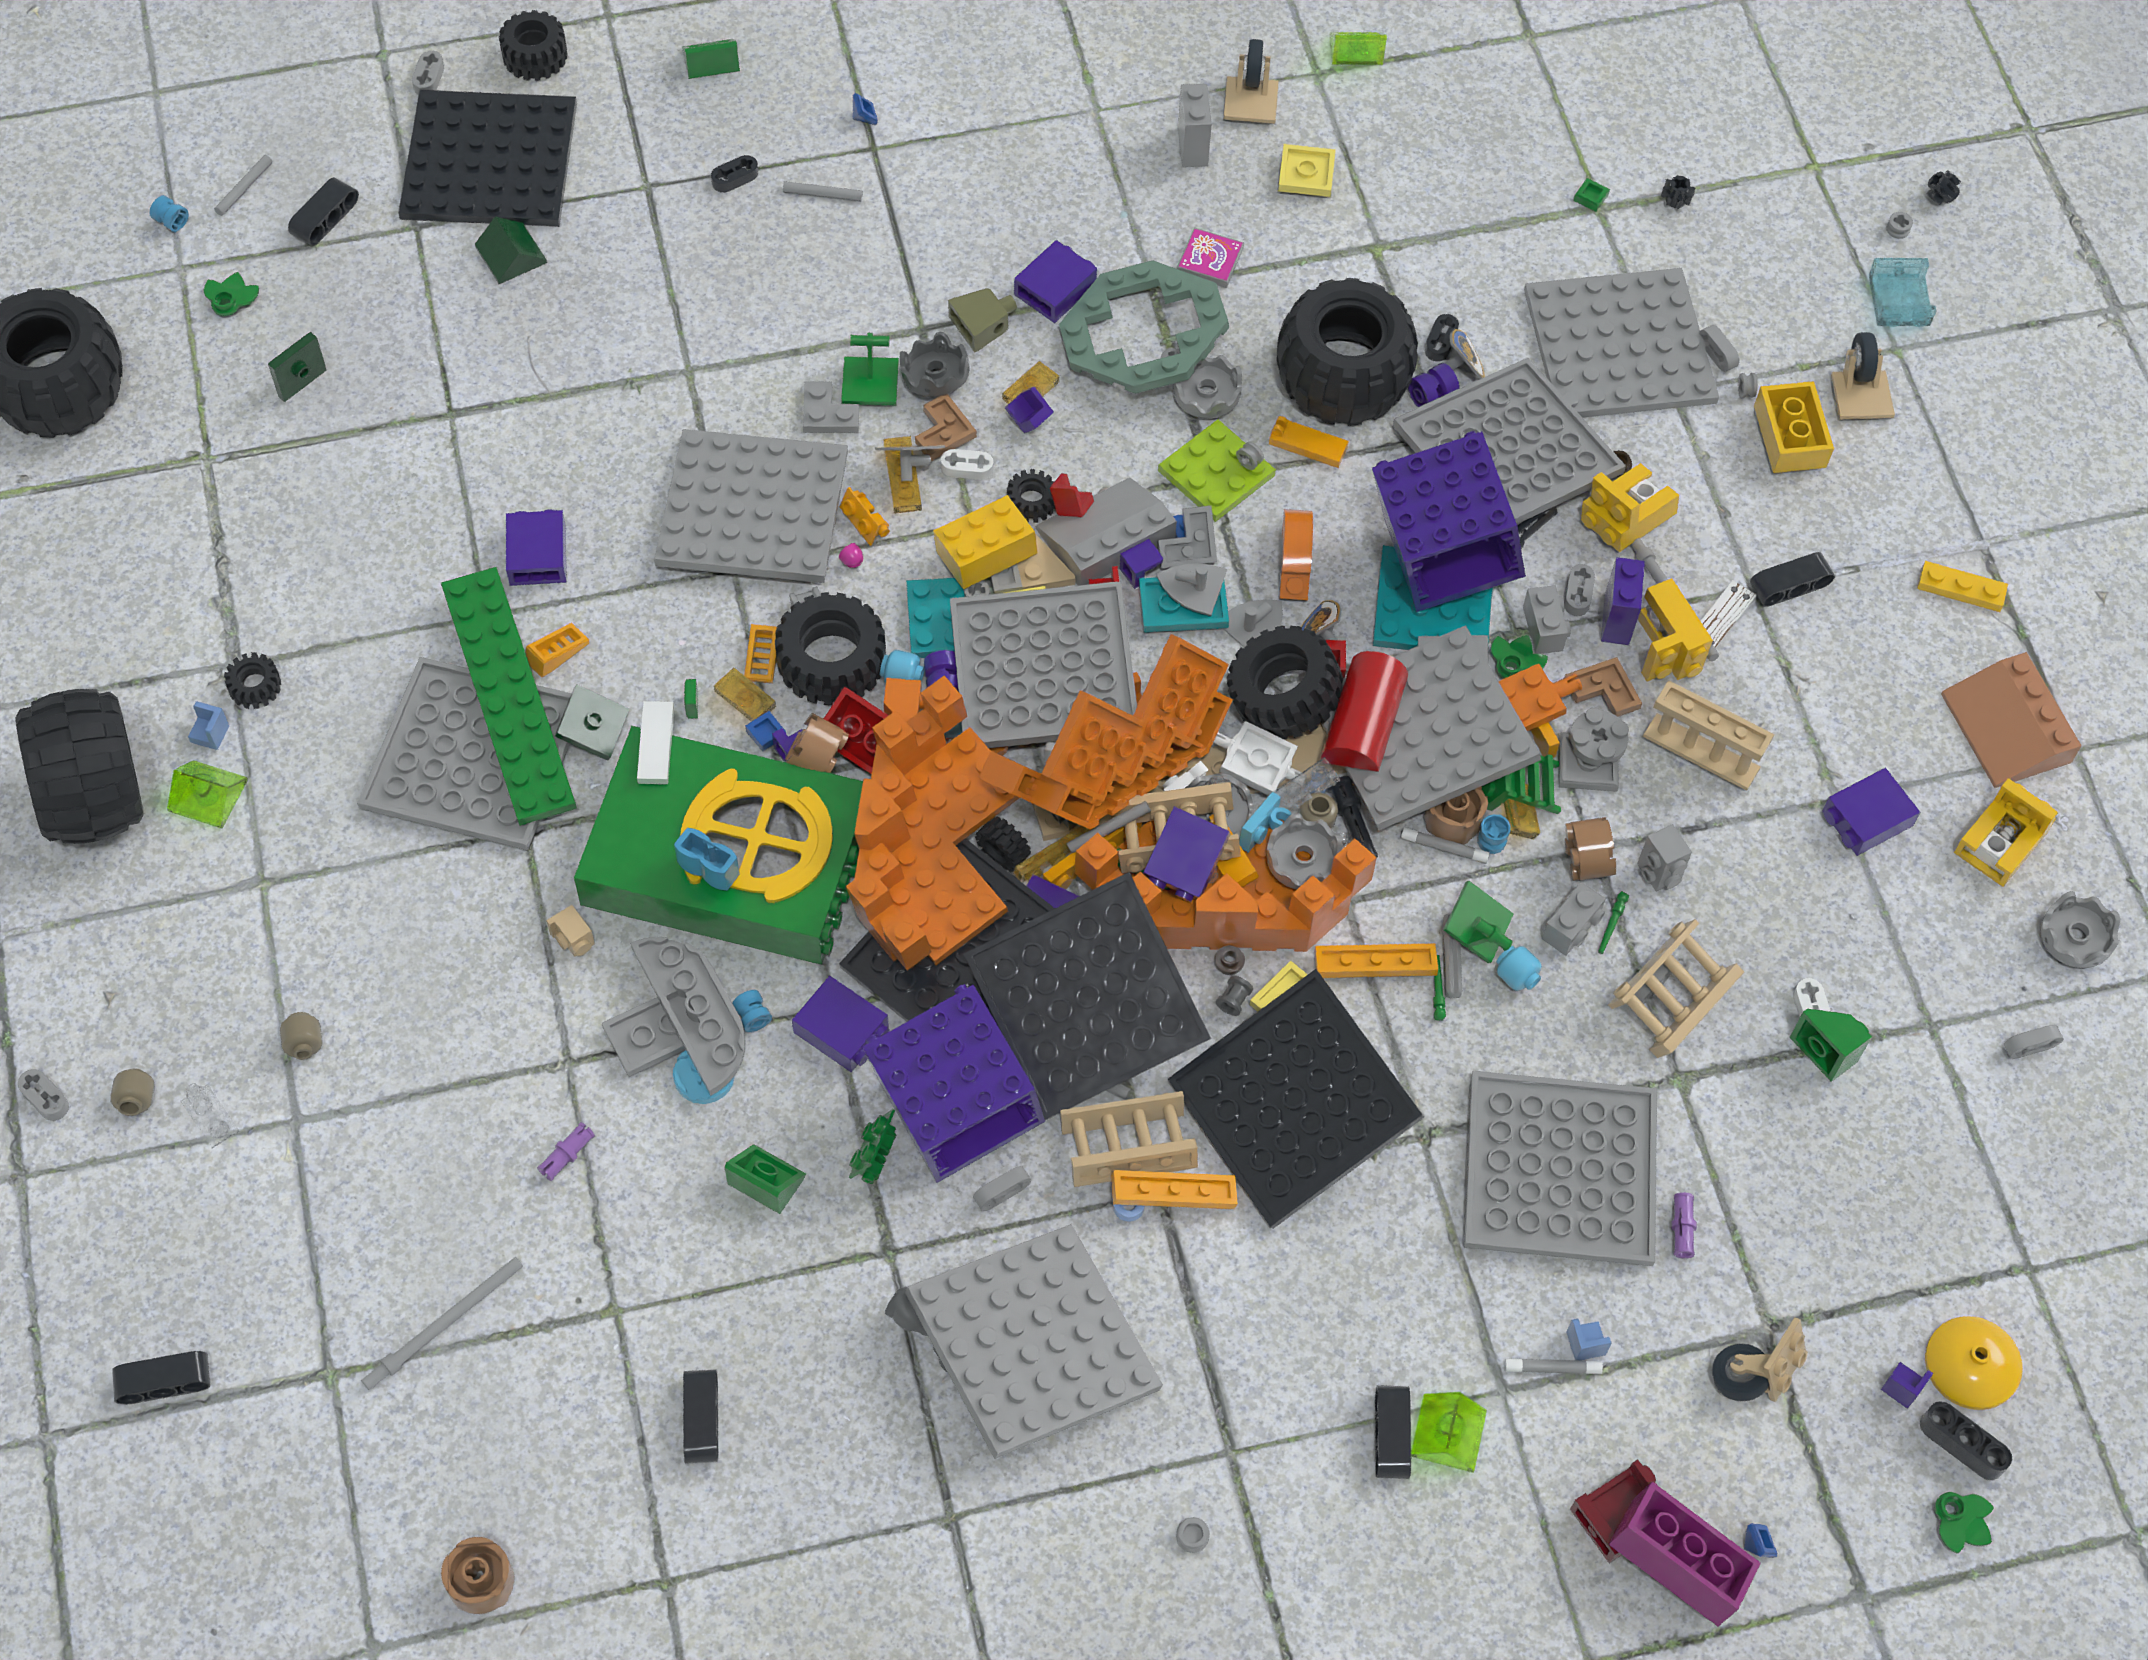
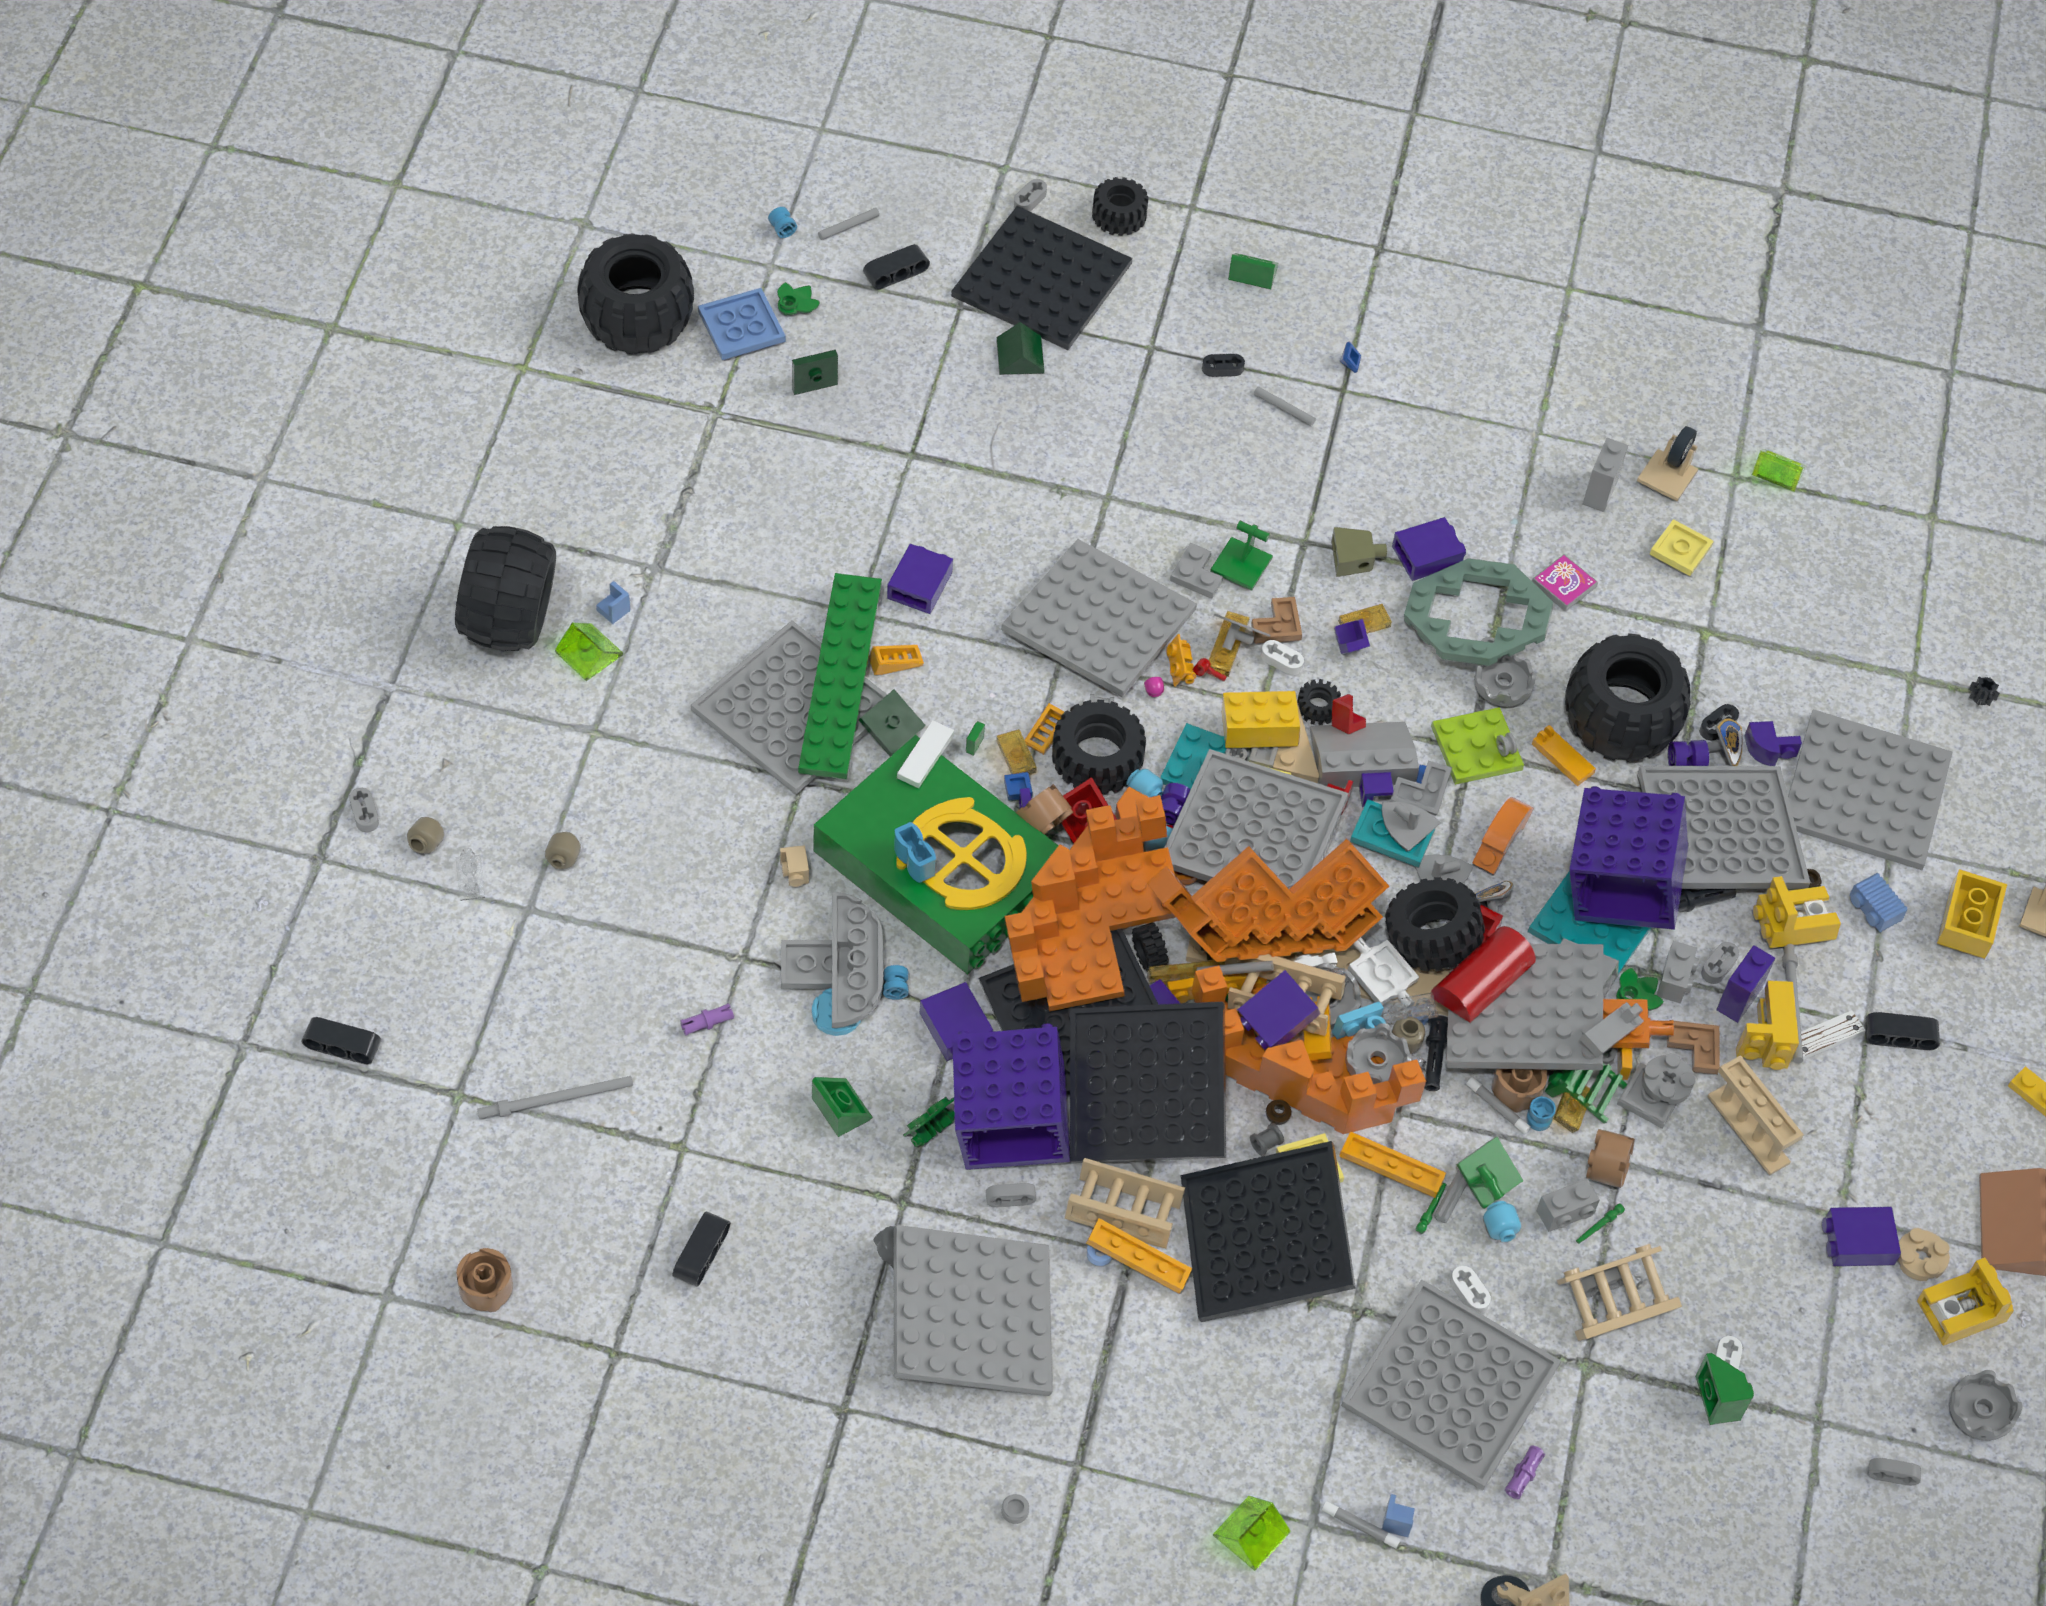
camera: 25 degrees right, 5 degrees down
(183, 346) = (741, 323): none -> medium blue plate
(248, 667) = (663, 596): black tyre -> none
(892, 510) = (1203, 667): none -> red hand
(939, 355) = (1305, 565): dark grey plate -> none
(1392, 1432) = (1207, 1509): black beam -> none
(1500, 341) = (1766, 746): none -> dark purple brick
(1524, 1056) = (1473, 1288): none -> white beam
(1529, 711) = (1612, 1029): none -> light grey hinge
(1591, 194) = (1910, 664): green tile -> none
(1664, 858) = (1666, 1192): light grey brick -> none
(1697, 456) = (1878, 902): none -> medium blue brick
(1719, 348) = (1947, 827): light grey beam -> none
(1747, 385) = (1954, 865): light grey bush -> none
(1944, 790) = (1930, 1244): none -> tan plate

